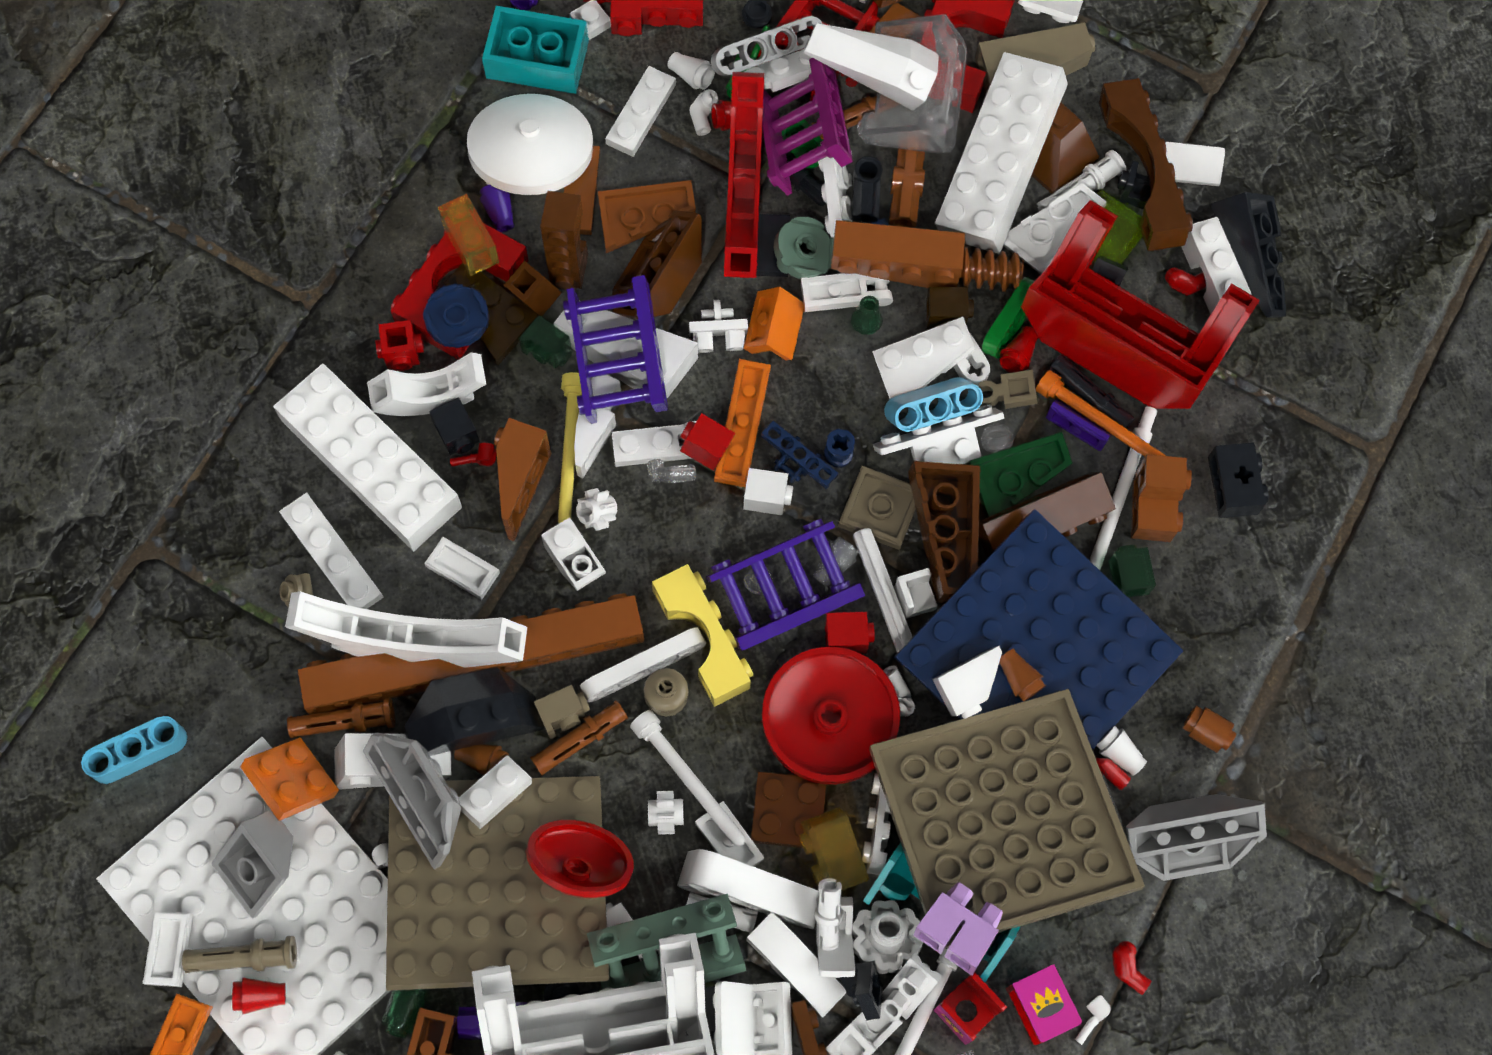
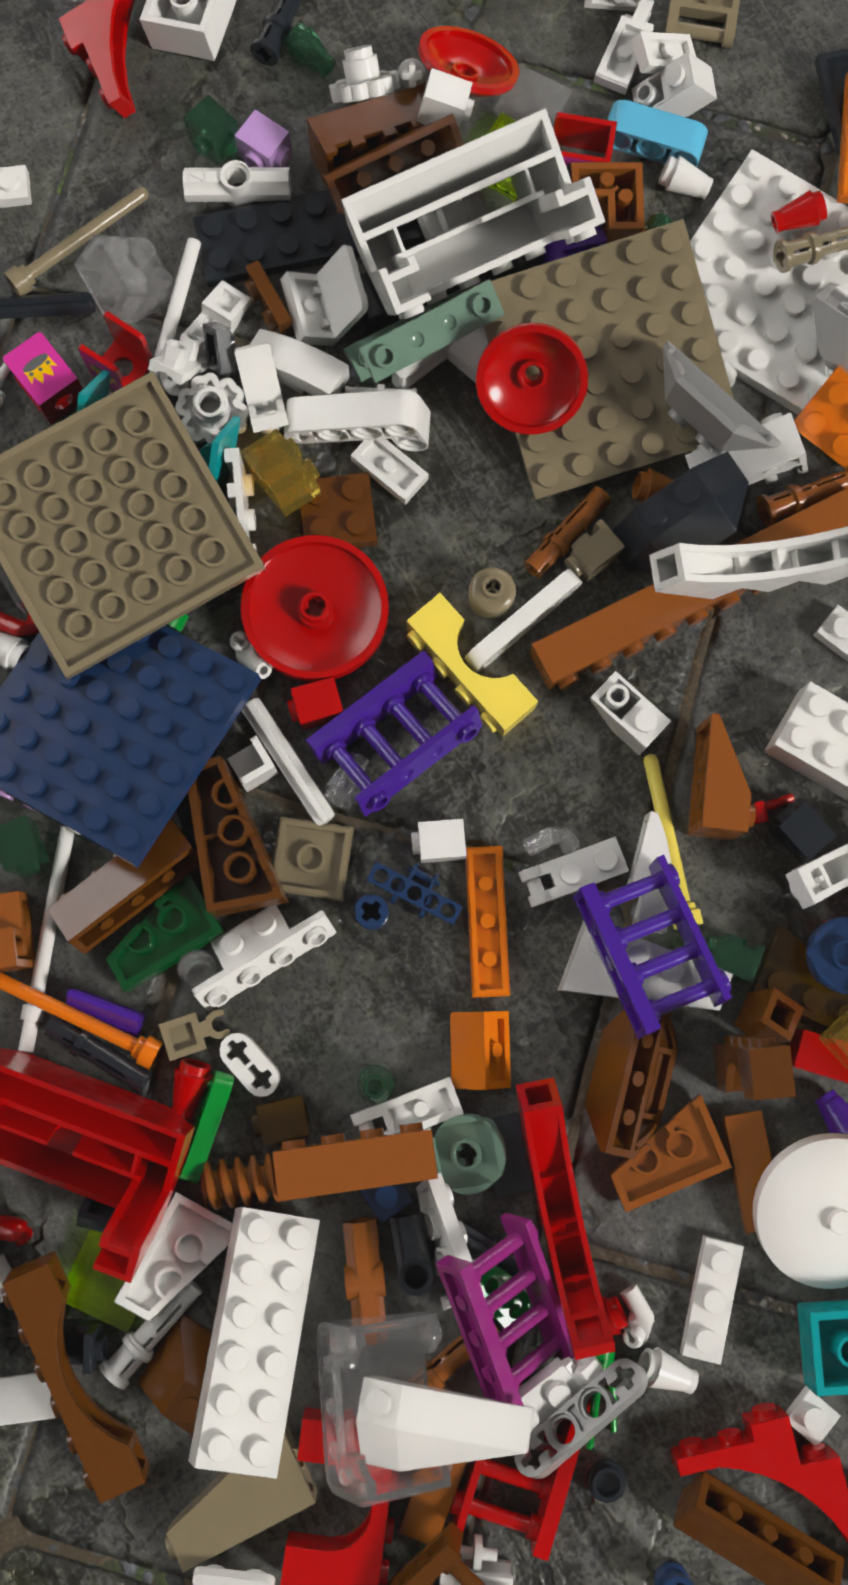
camera: 165 degrees right, 10 degrees up
(462, 568) = (742, 682): white tile -> none
(494, 791) = (637, 443): white plate -> none
(596, 509) = (619, 774): white gear -> none
(648, 728) = (497, 556): white piece -> none
(665, 812) = (460, 475): white gear -> none
(706, 441) = (521, 874): red brick -> none
(732, 329) = (558, 1017): white hips -> none
(828, 914) = (269, 397): white pin -> none
(923, 357) = (302, 1044): white wing -> none
(946, 917) = (133, 379): lavender hips -> none
(947, 407) = (275, 989): medium azure beam -> none
(969, 683) = (172, 657): white slope -> none
(1022, 677) = (116, 676): dark orange cone -> none

